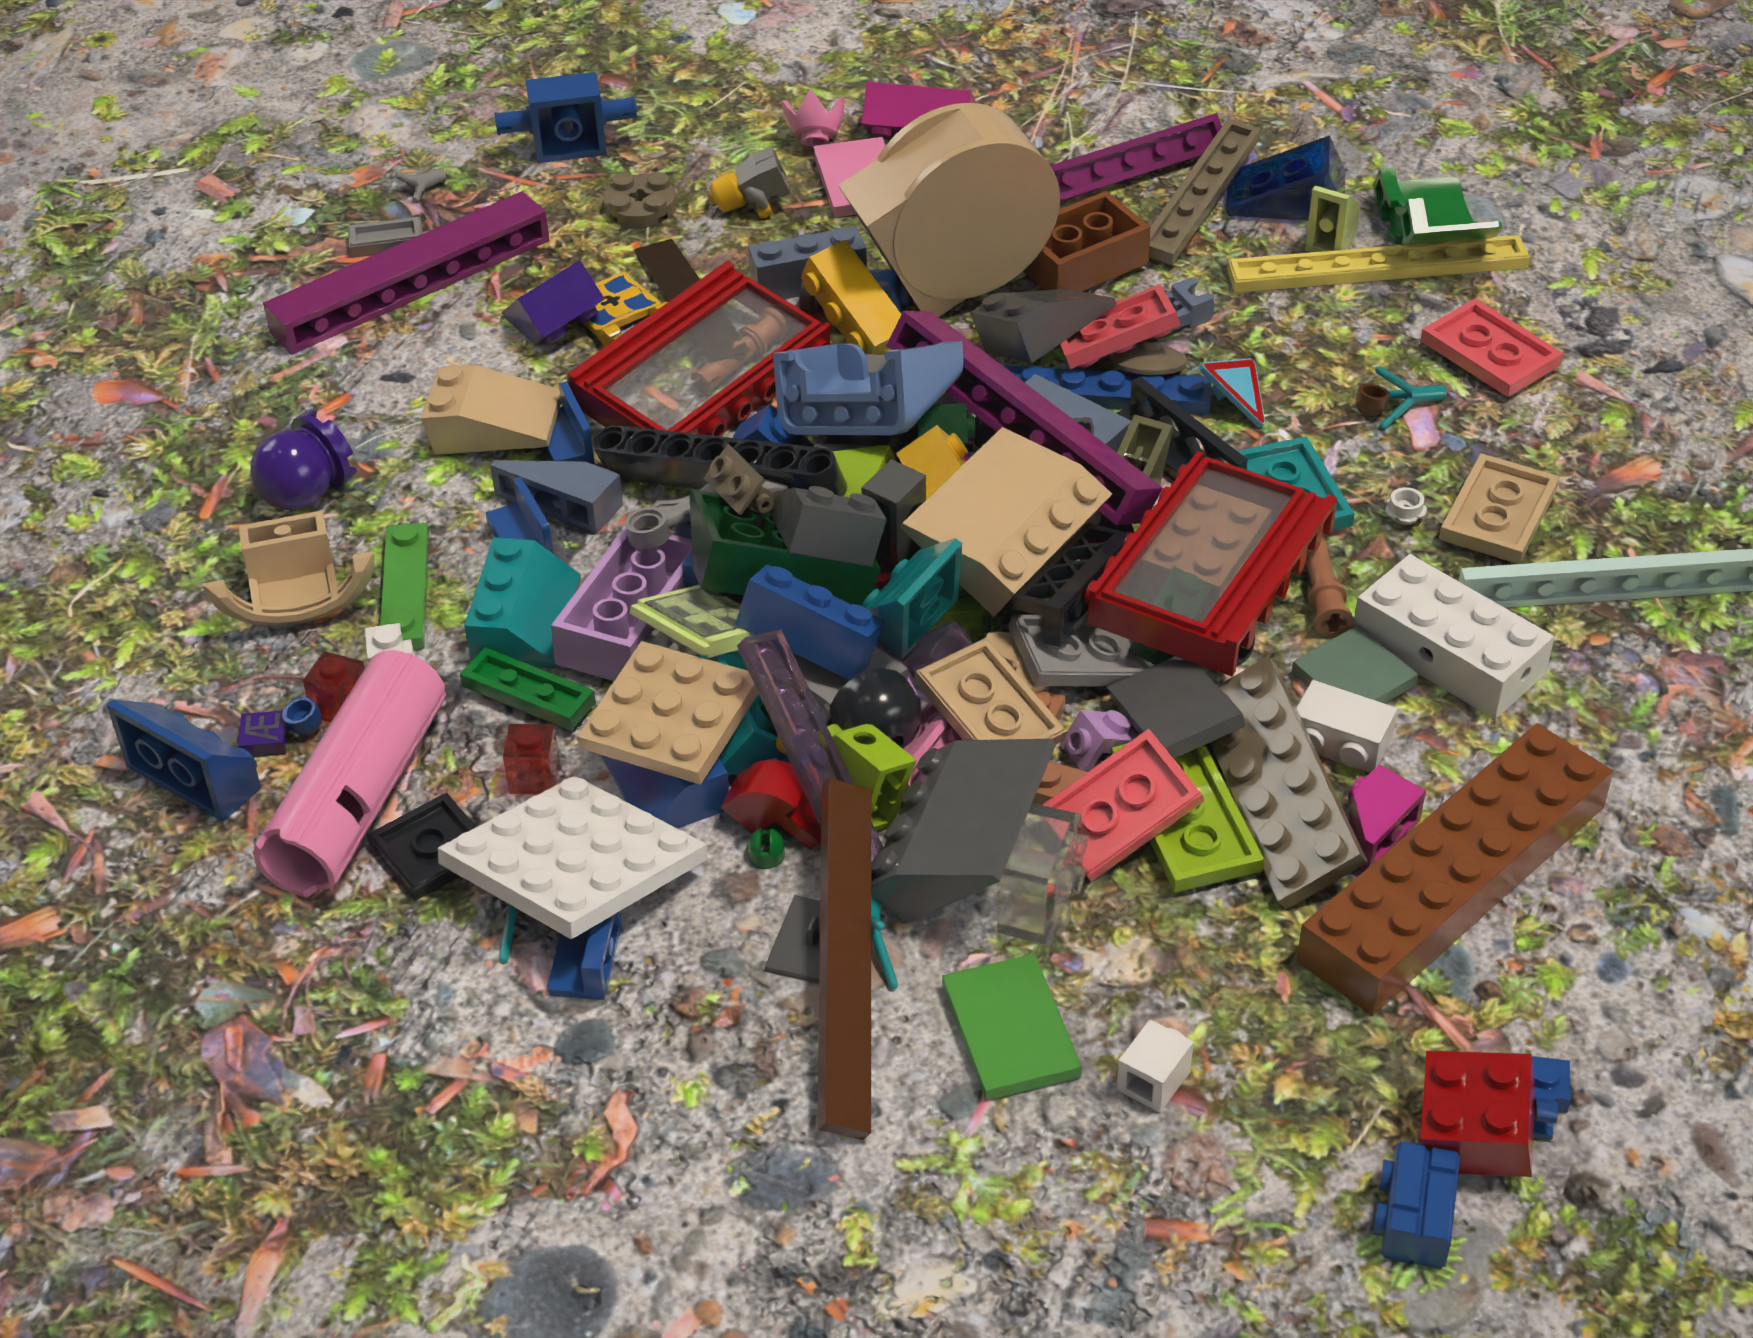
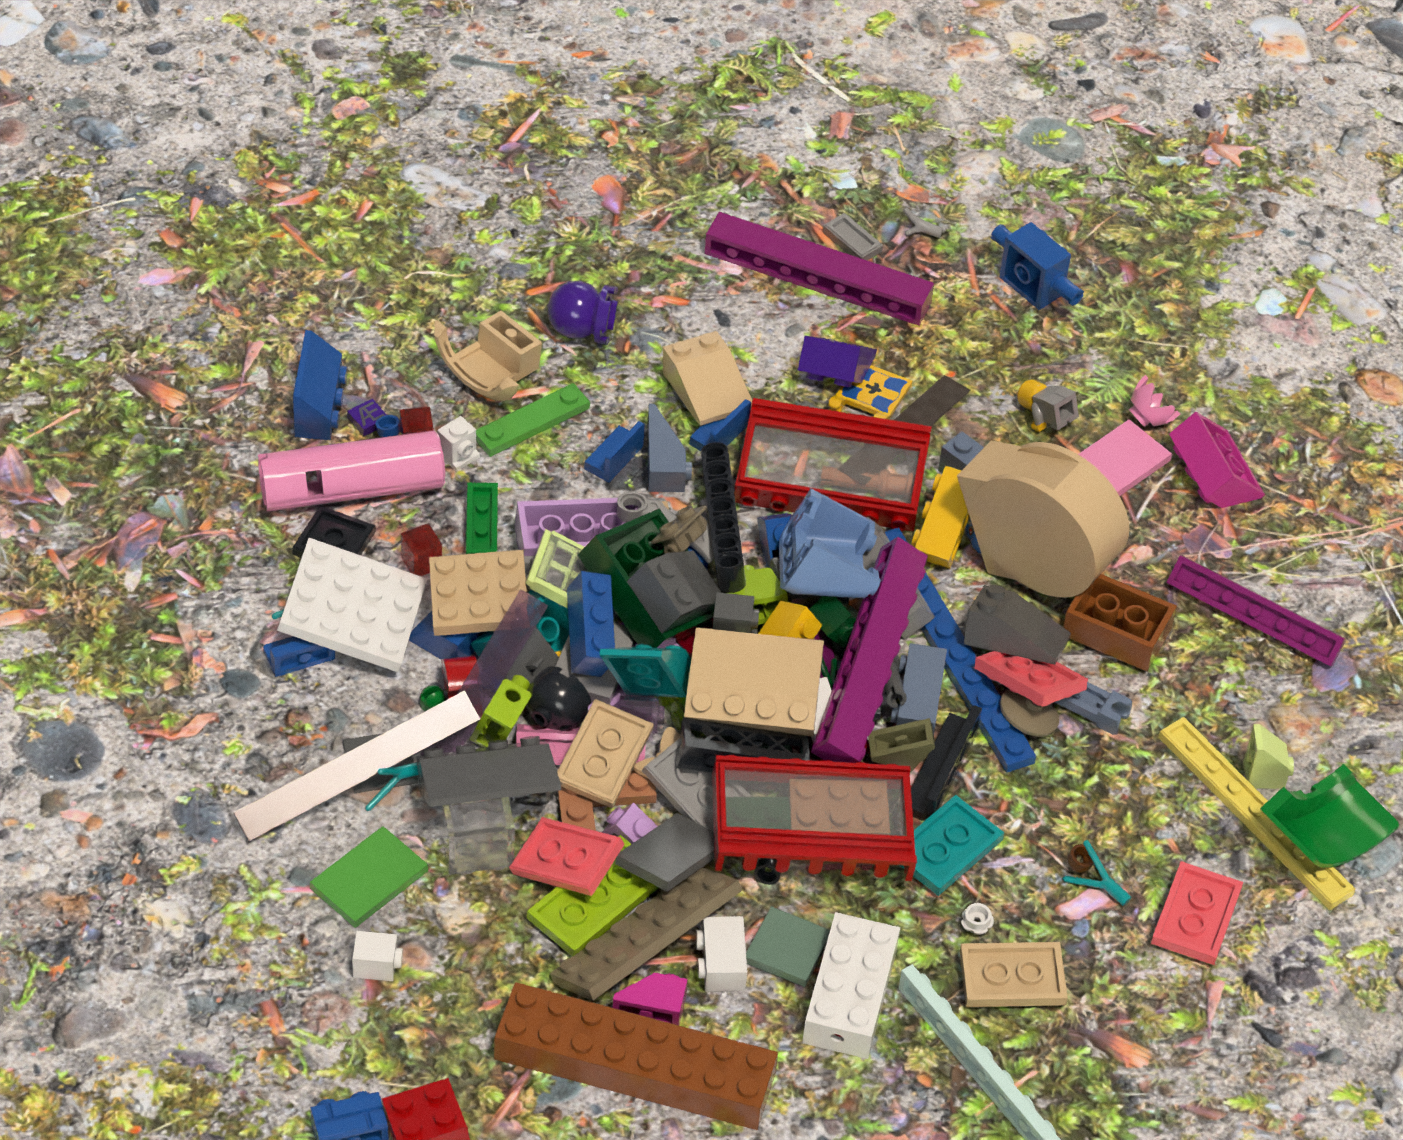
camera: 55 degrees right, 5 degrees up
(518, 601) = (547, 473): teal slope -> none
(640, 199) = (998, 339): dark tan plate -> none
(1201, 190) = (1250, 667): dark tan plate -> none
(1238, 383) = (1032, 772): medium azure piece -> none
(1284, 182) = (1303, 720): clear blue slope -> none
(1326, 594) = (851, 902): nougat pin -> none

